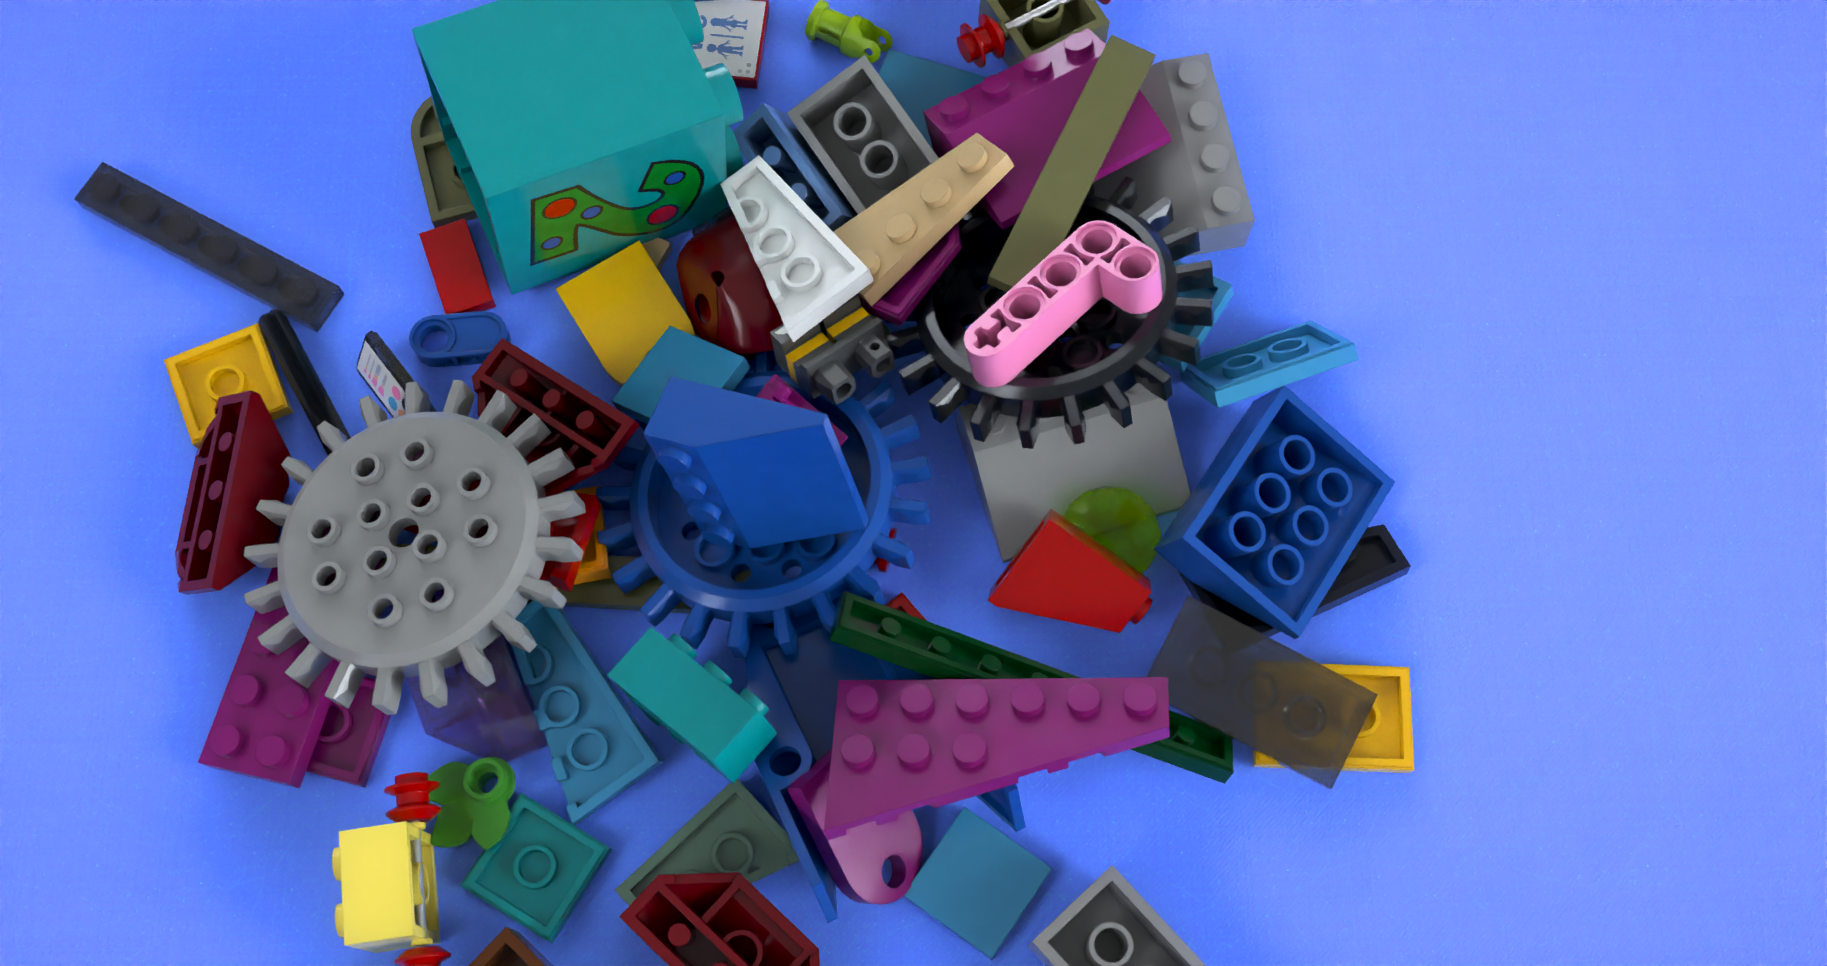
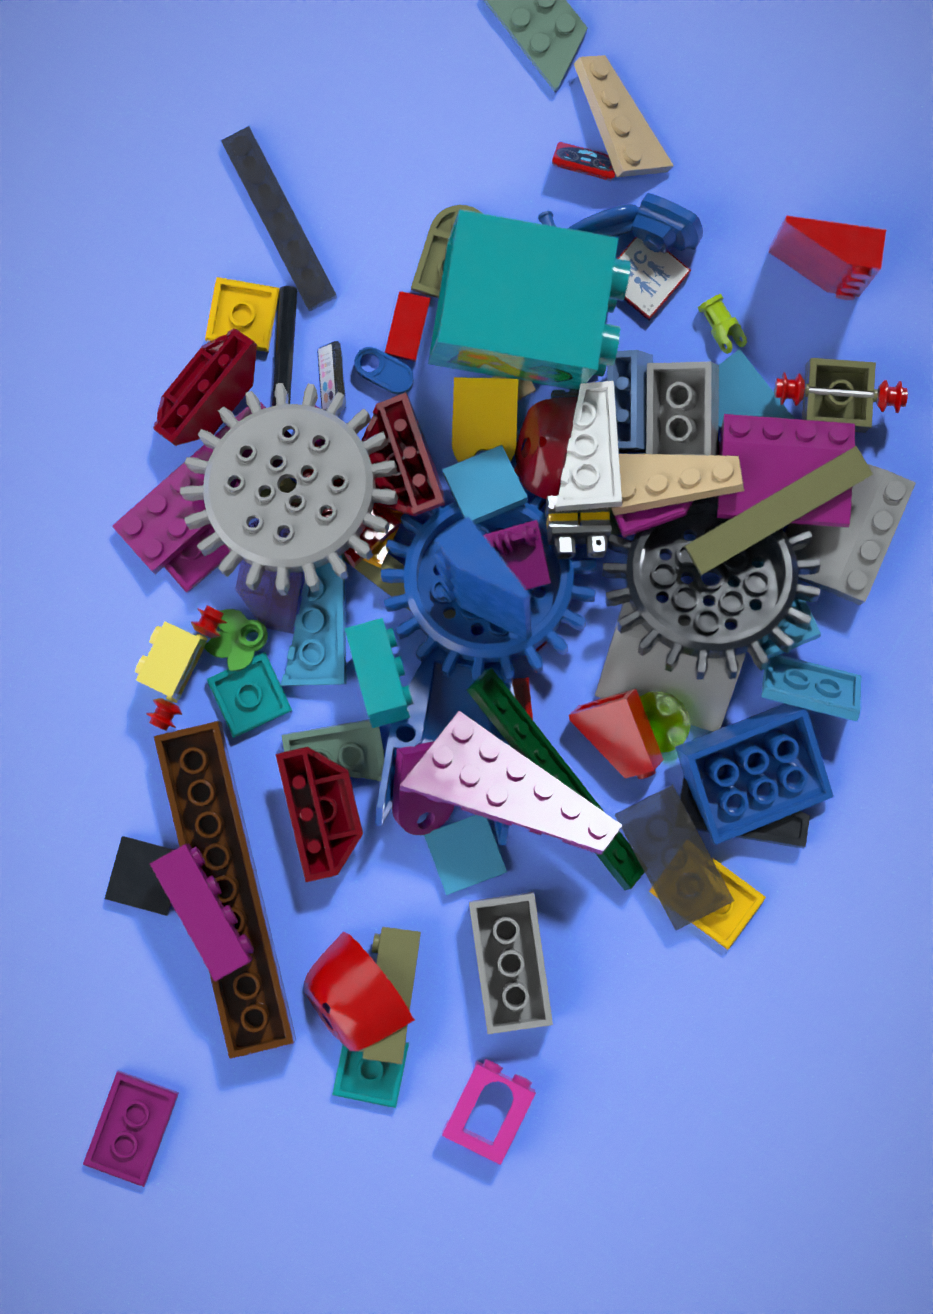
camera: 35 degrees right, 15 degrees up
(1084, 268) = (706, 592): bright pink beam -> none

